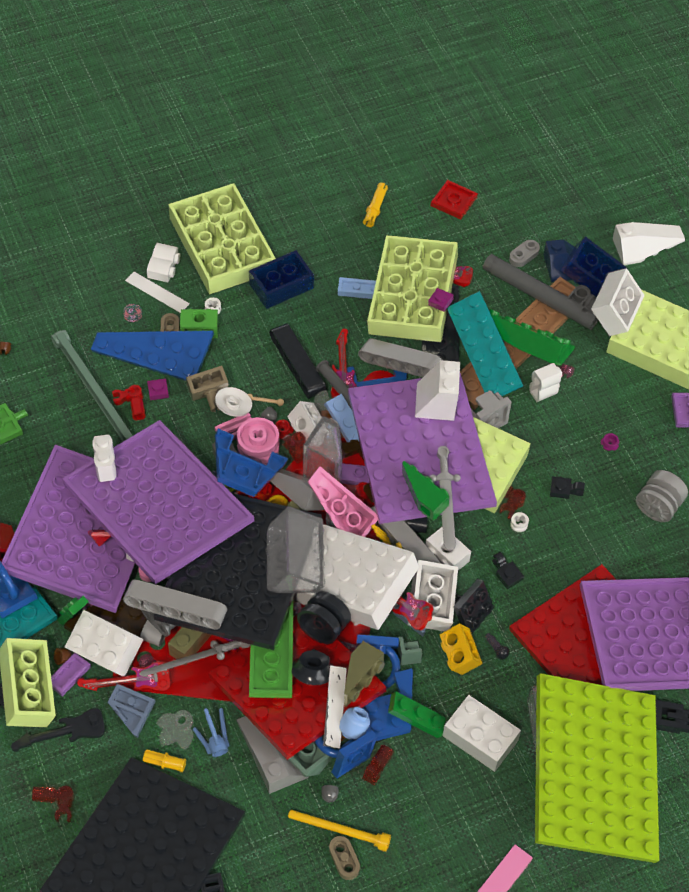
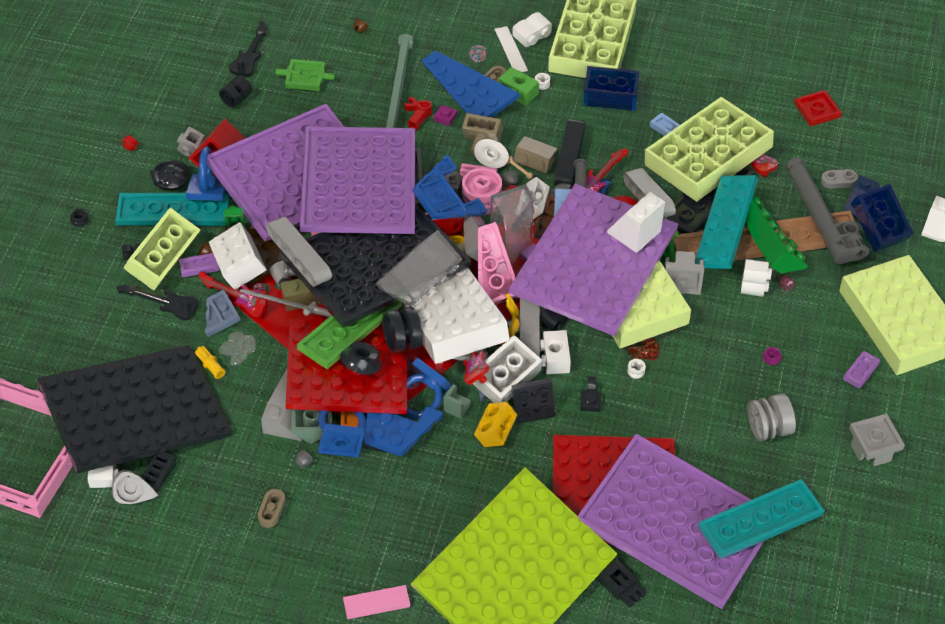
camera: 40 degrees right, 5 degrees down
(49, 794) = (119, 339): clear red bar -> none
(99, 536) = (296, 180): red slope -> none
(104, 458) = (344, 127): white brick -> none
(217, 744) = (255, 374): medium blue plant -> none
(272, 380) = (535, 154): none -> dark tan brick
(335, 706) = (351, 394): white sticker -> none
(354, 723) = (356, 414): light blue head -> none
(363, 666) = (395, 381): olive slope -> none
(373, 209) = (739, 79): yellow pin -> none
(377, 765) = (348, 463): clear red bar -> none
(380, 840) = (309, 515): yellow piece -> none
(416, 714) = (414, 445): green plate -> none
(426, 495) = (556, 287): green slope -> none
(440, 299) = (716, 164): magenta plate -> none
(445, 482) = (585, 288): light grey sword -> none
(481, 733) = (454, 492): white brick -> none
(501, 651) = (529, 449): piece -> none
(563, 488) = (698, 365): black plate -> none
(617, 302) = (871, 248): white brick -> none

